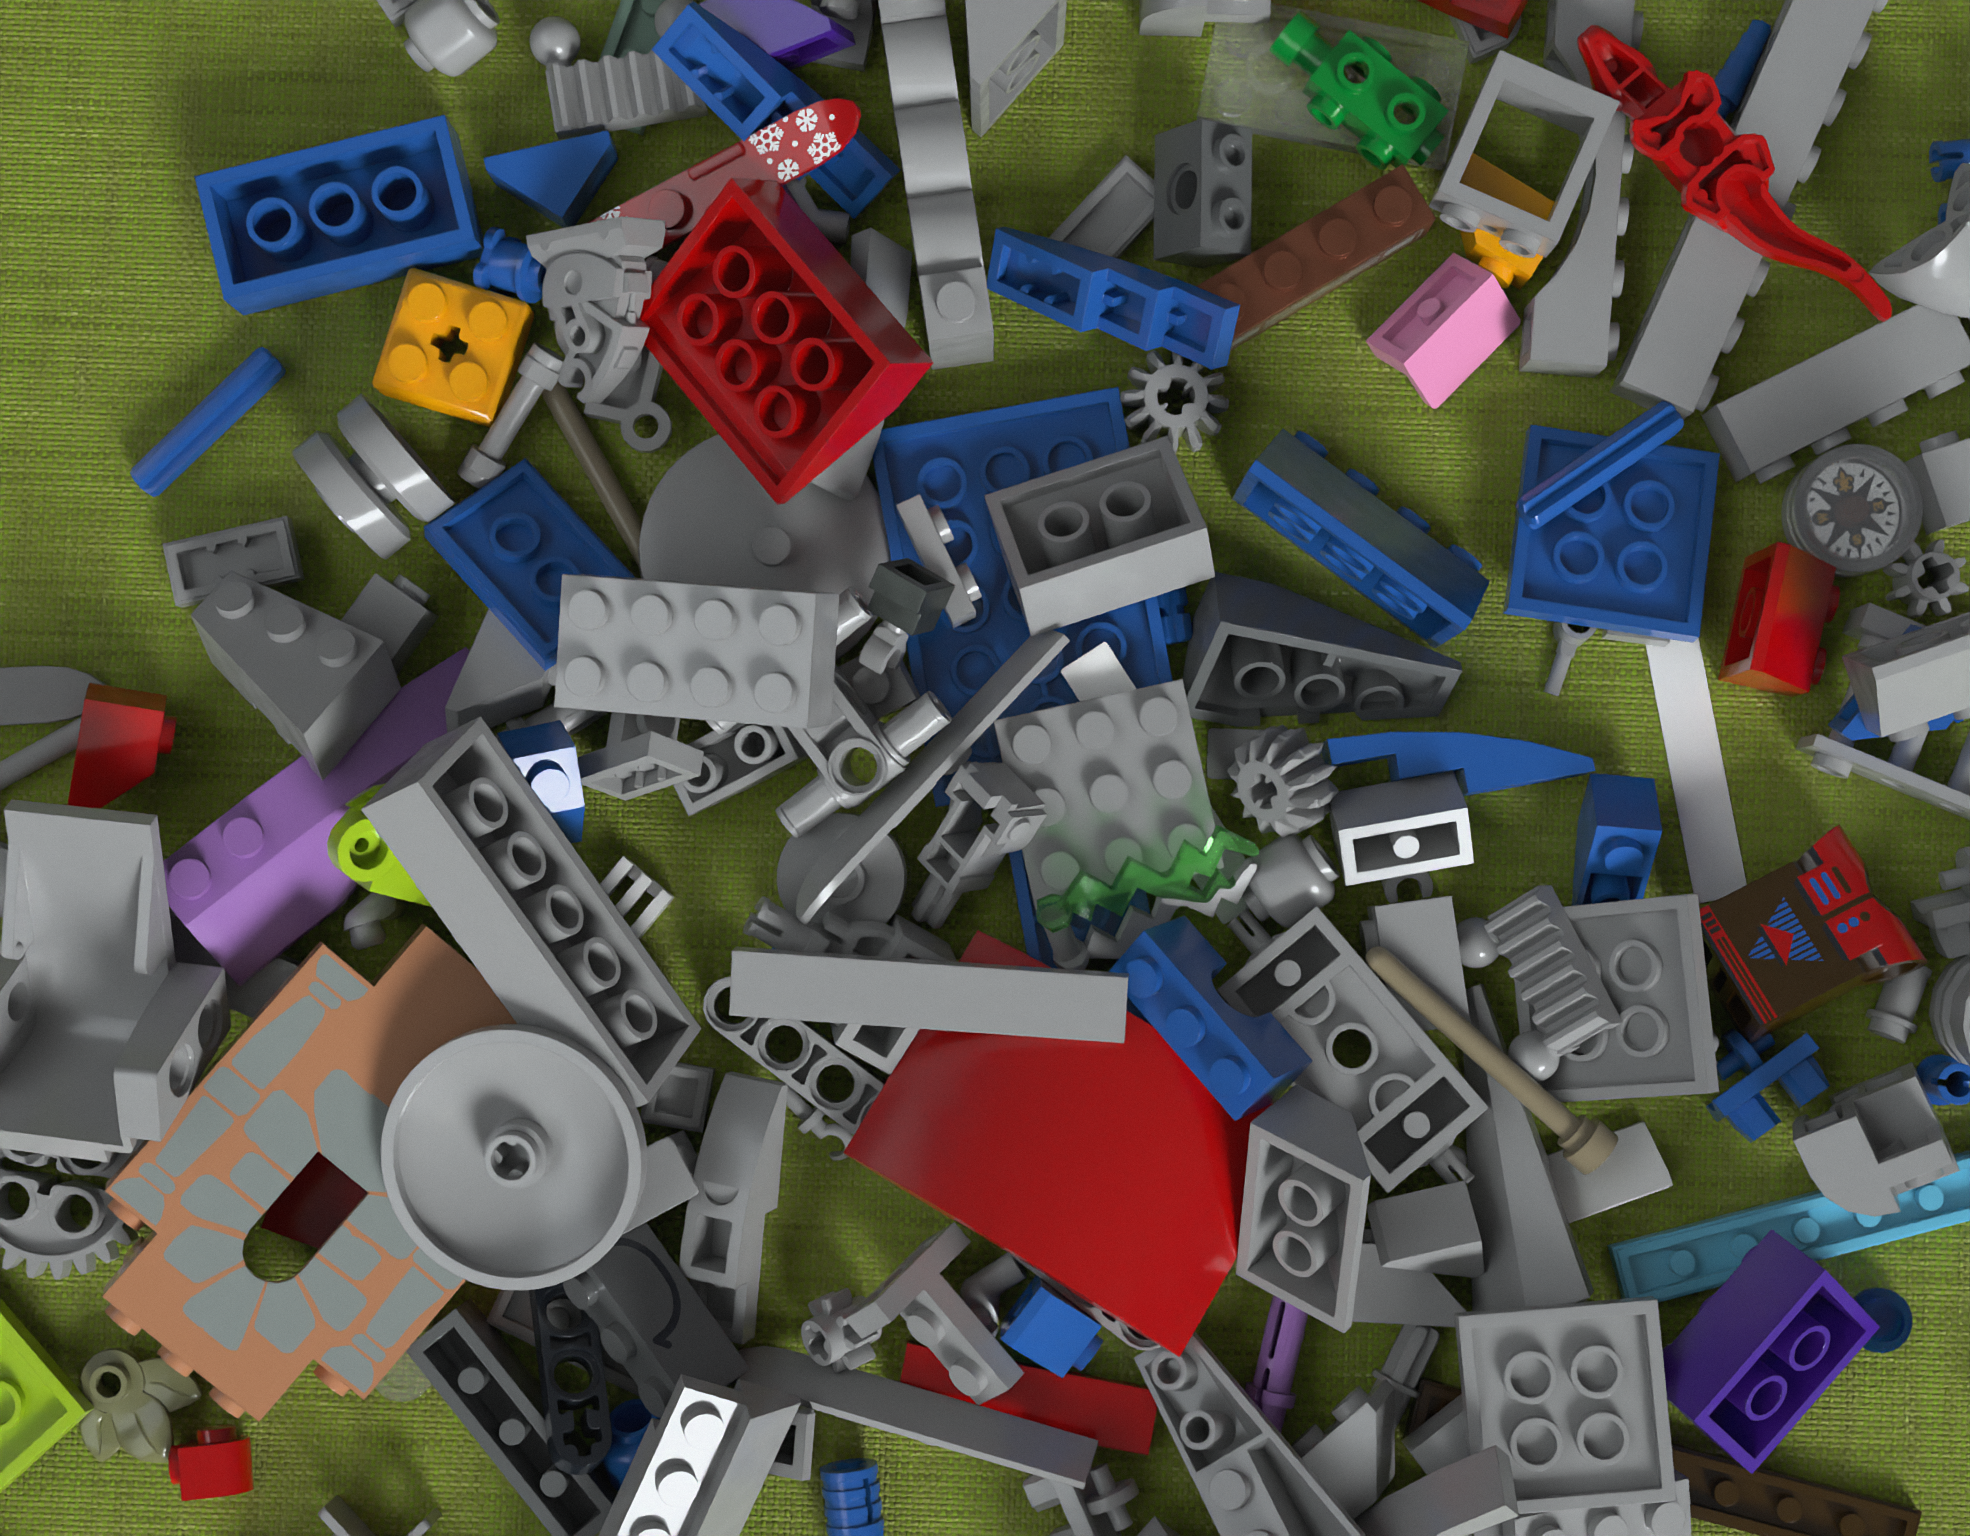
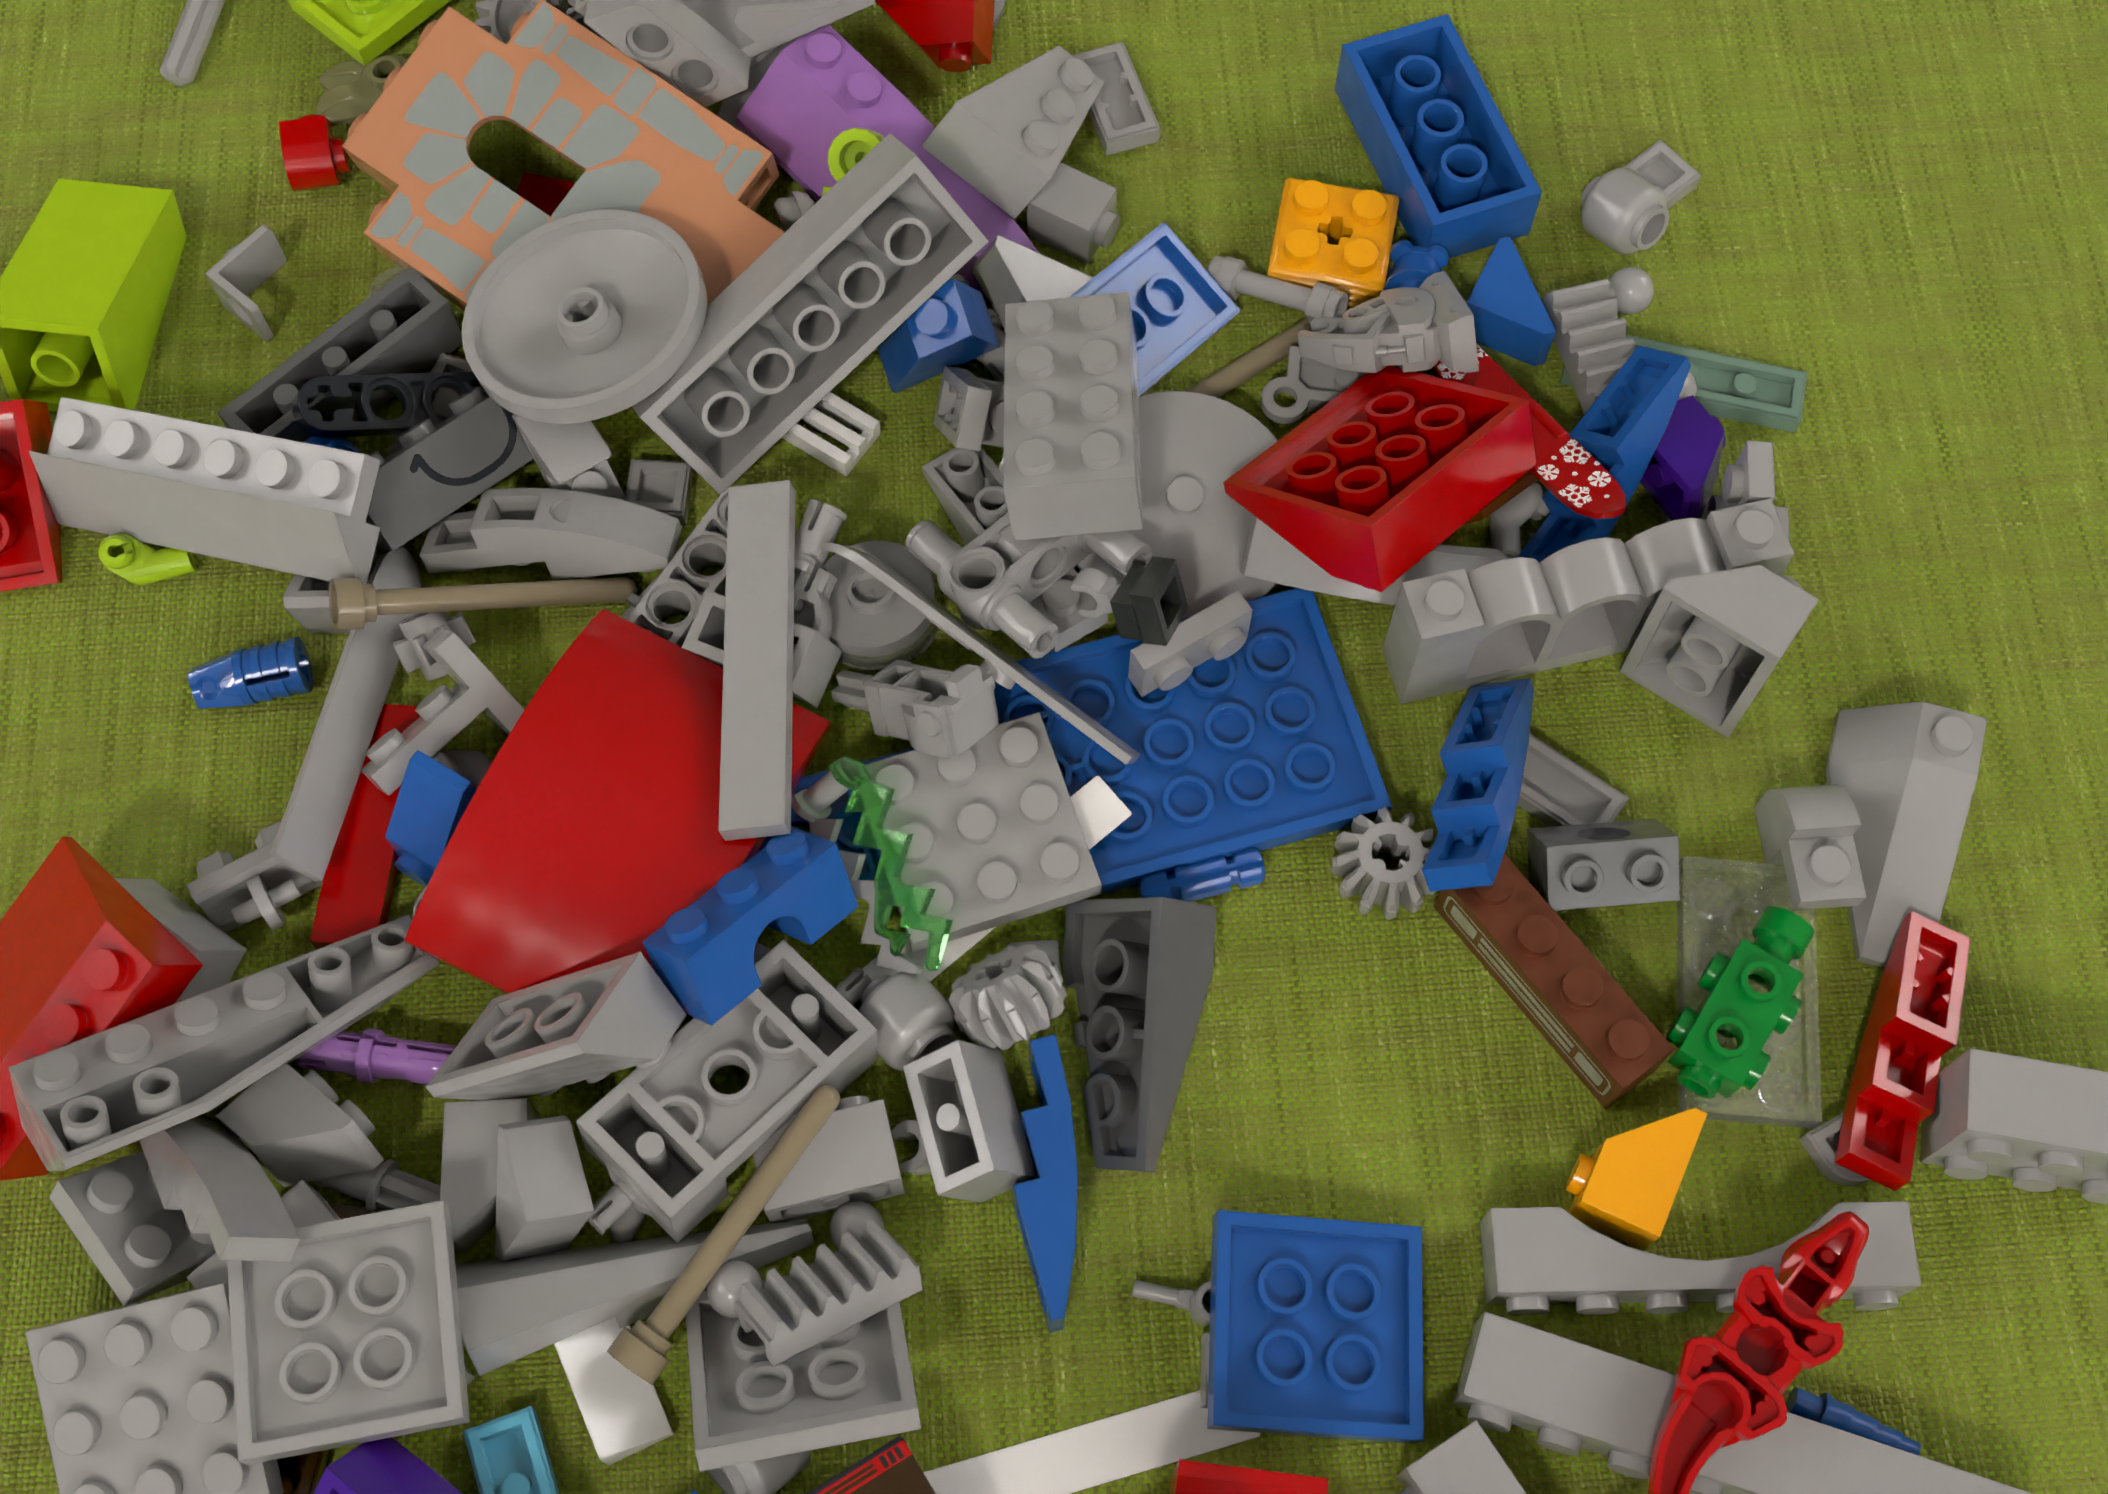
camera: 80 degrees right, 20 degrees down
(207, 422) = (1236, 70): blue axle -> none
(366, 483) = (1202, 176): light grey wheel -> none
(822, 1403) = (358, 603): none -> dark tan piece
(1101, 535) = (1234, 787): light grey slope -> none
(1362, 538) = (1274, 1047): blue slope -> none
(1446, 329) = (1507, 1133): bright pink panel -> none
(1550, 99) = (1780, 1179): light grey window -> none
(1599, 464) = (1389, 1297): blue axle -> none
(1615, 839) = (980, 1361): blue slope -> none

